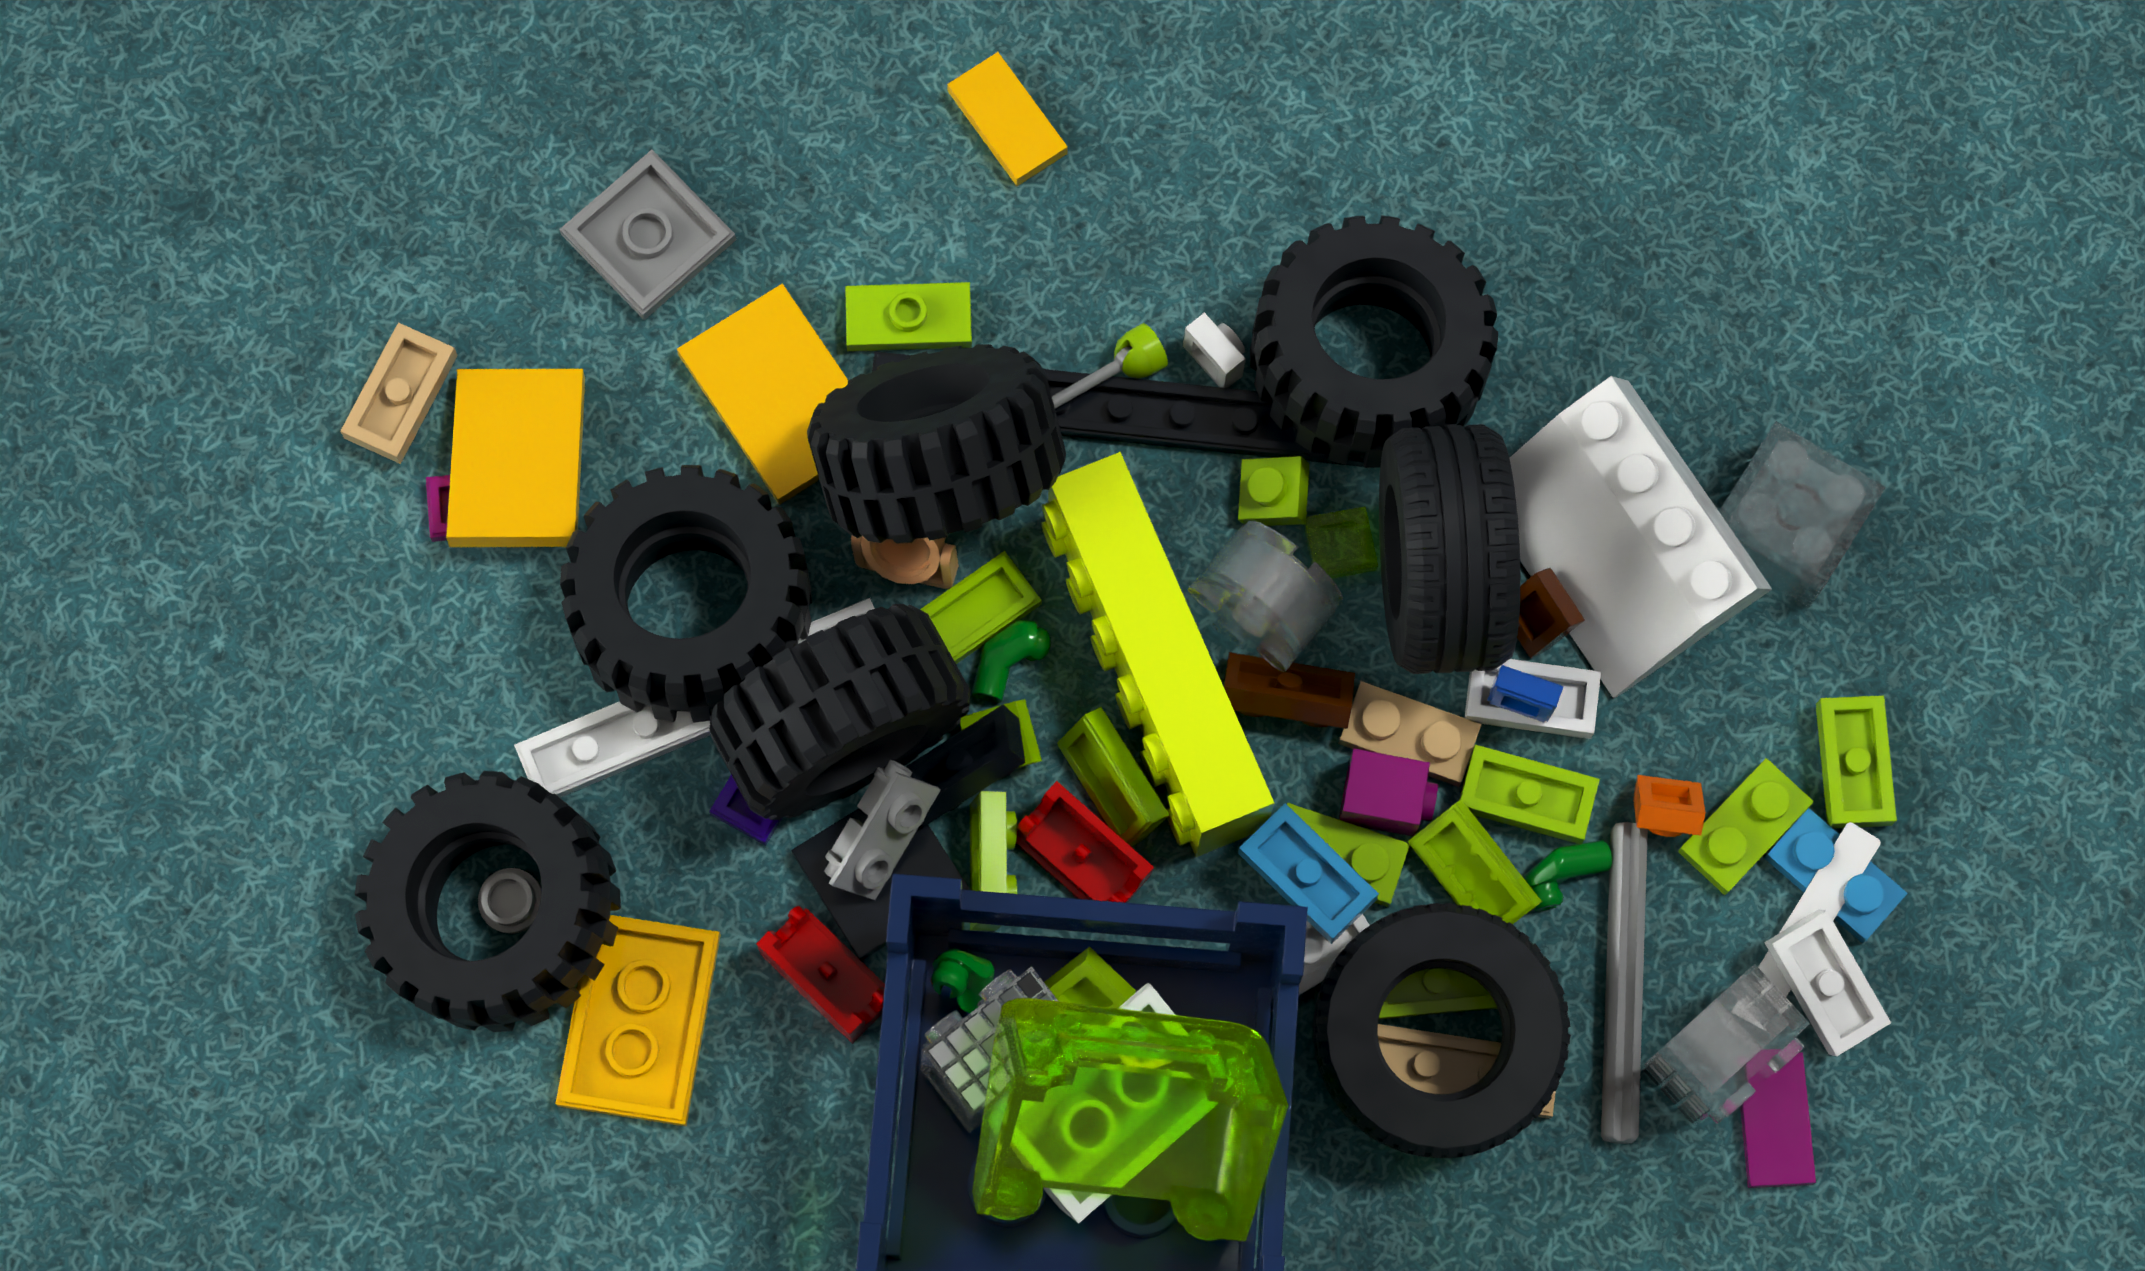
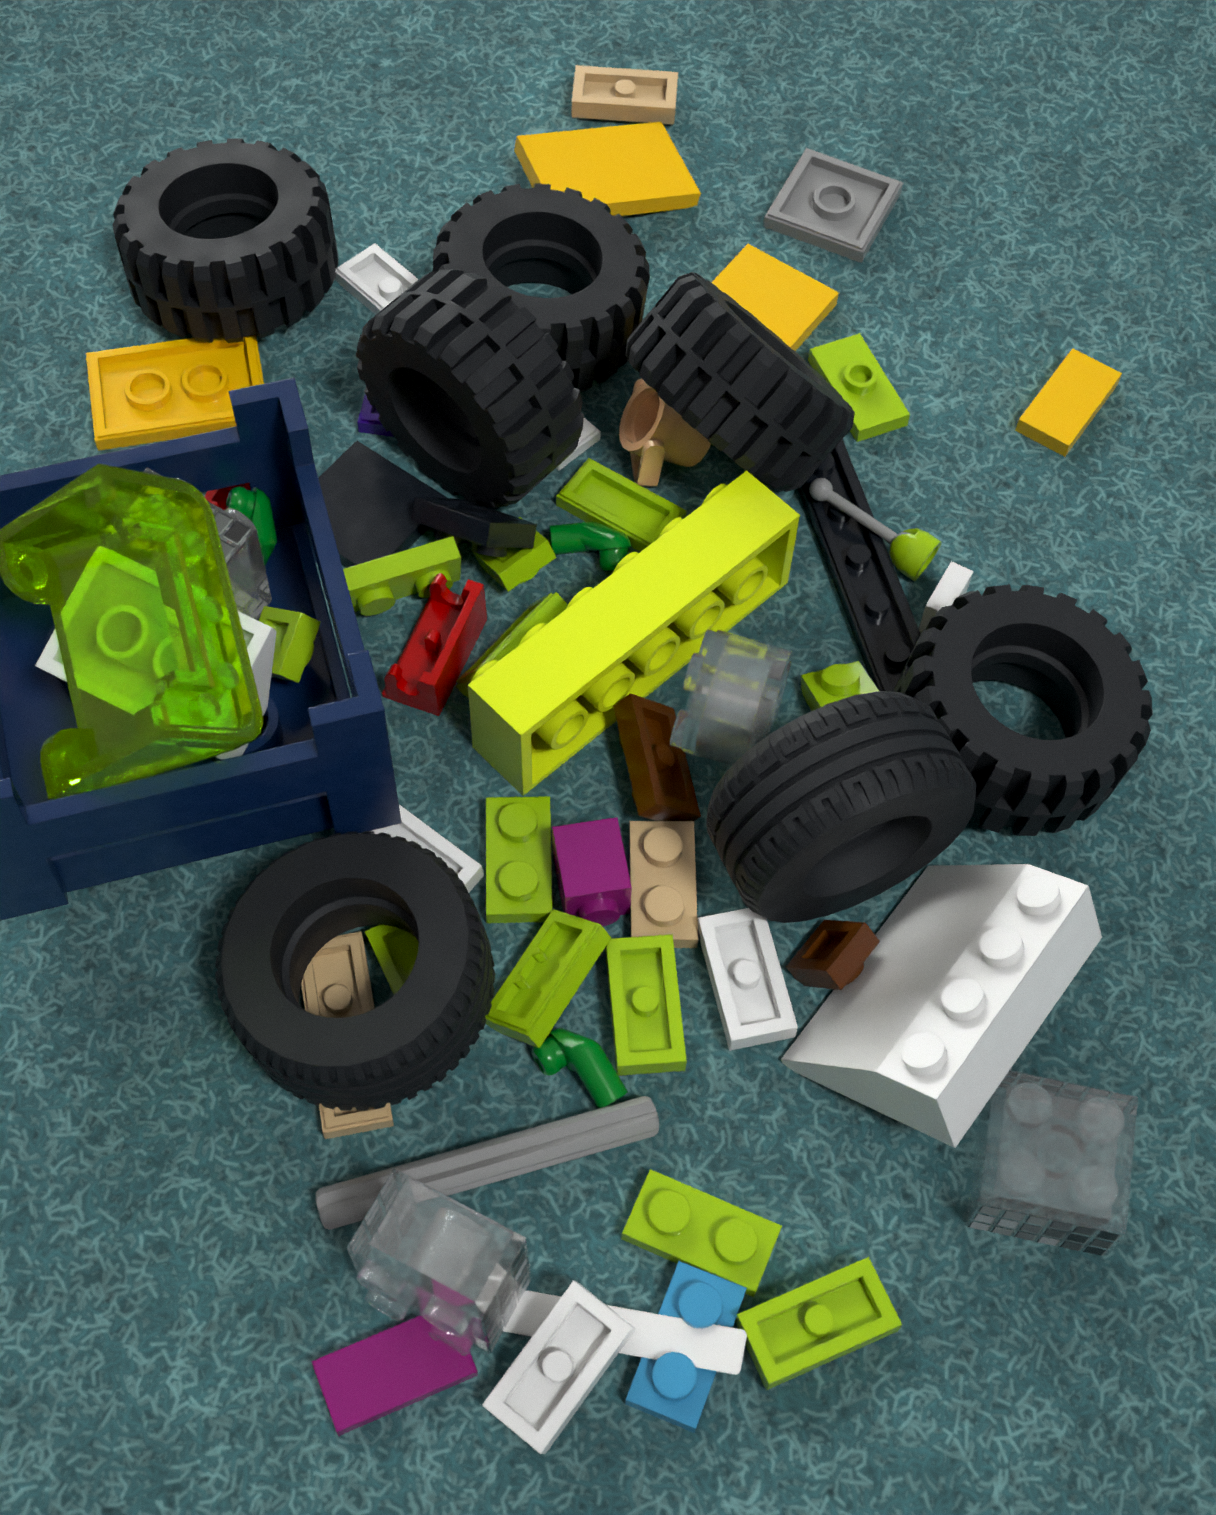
camera: 70 degrees right, 15 degrees down
(869, 851) = (387, 474): light grey hinge -> none
(1308, 873) = (480, 813): dark azure plate -> none
(1524, 694) = (736, 948): blue tile -> none
(1669, 806) = (687, 1140): orange plate -> none

